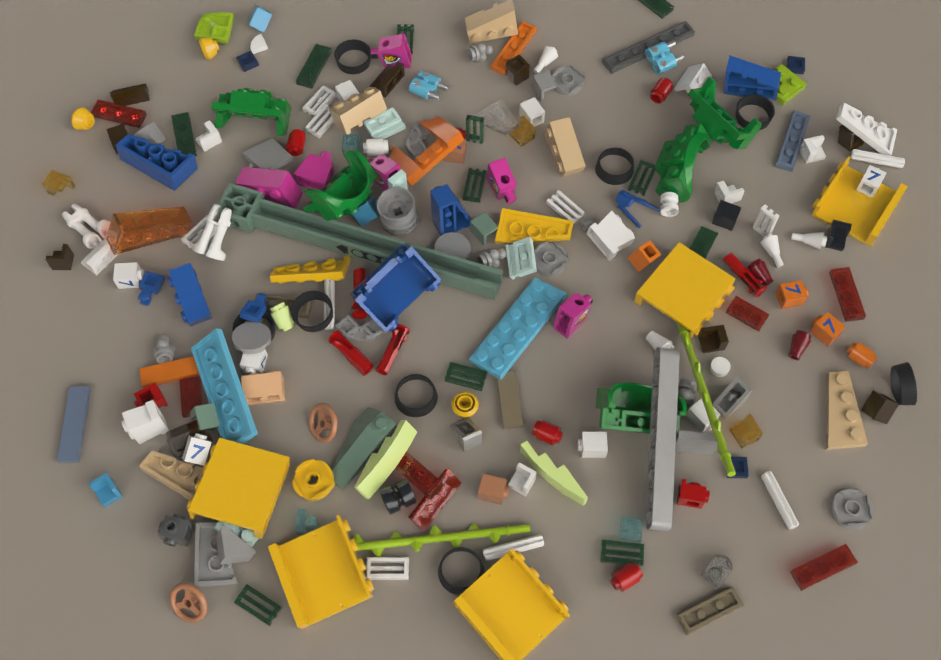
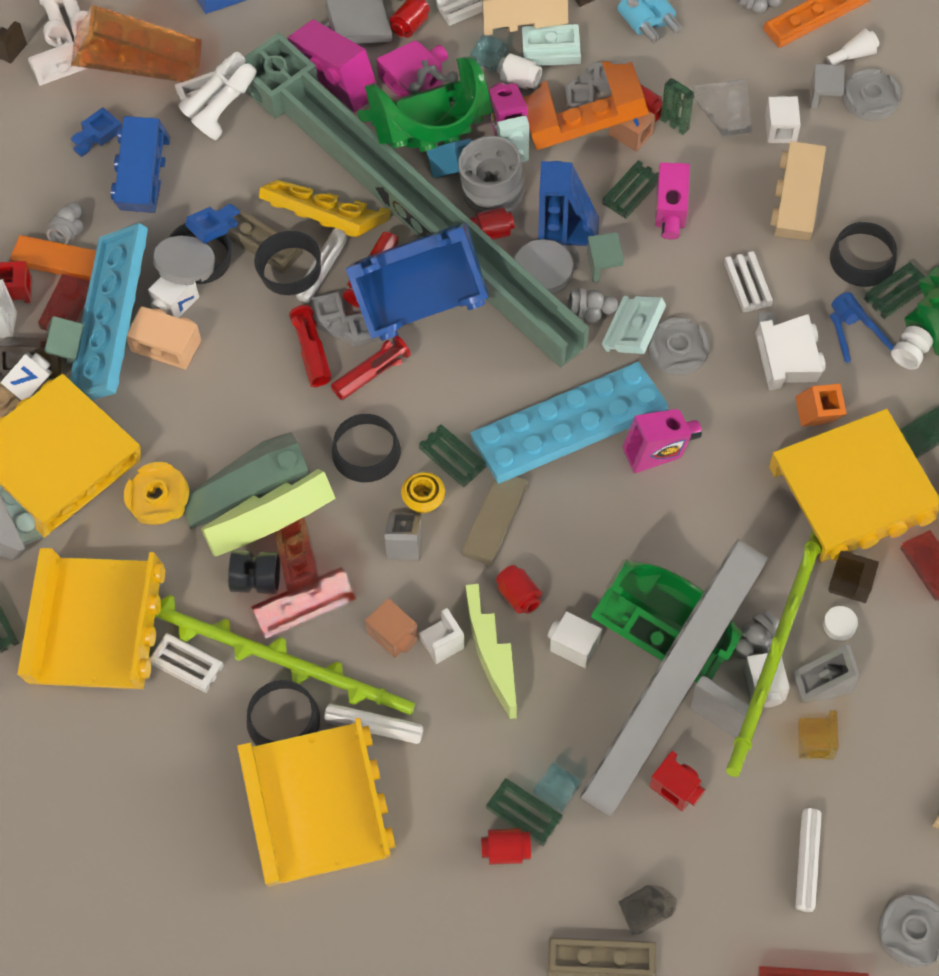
camera: 30 degrees right, 0 degrees up
(127, 275) = (75, 101): white brick -> none
(282, 316) = (243, 251): yellowish green brick -> none
(304, 521) = (111, 542): clear light blue tile -> none
(325, 422) = (220, 422): nougat piece -> none
(326, 180) = (414, 87): none -> dark grey piece
(413, 235) = (495, 222): none -> red brick
(519, 68) = (801, 45): dark brown panel -> none
(519, 225) = (684, 291): yellow wing -> none
(524, 133) = (752, 146): clear yellow panel -> none
(657, 340) = (768, 543): white cone -> none
(741, 467) = (772, 780): dark blue tile -> none

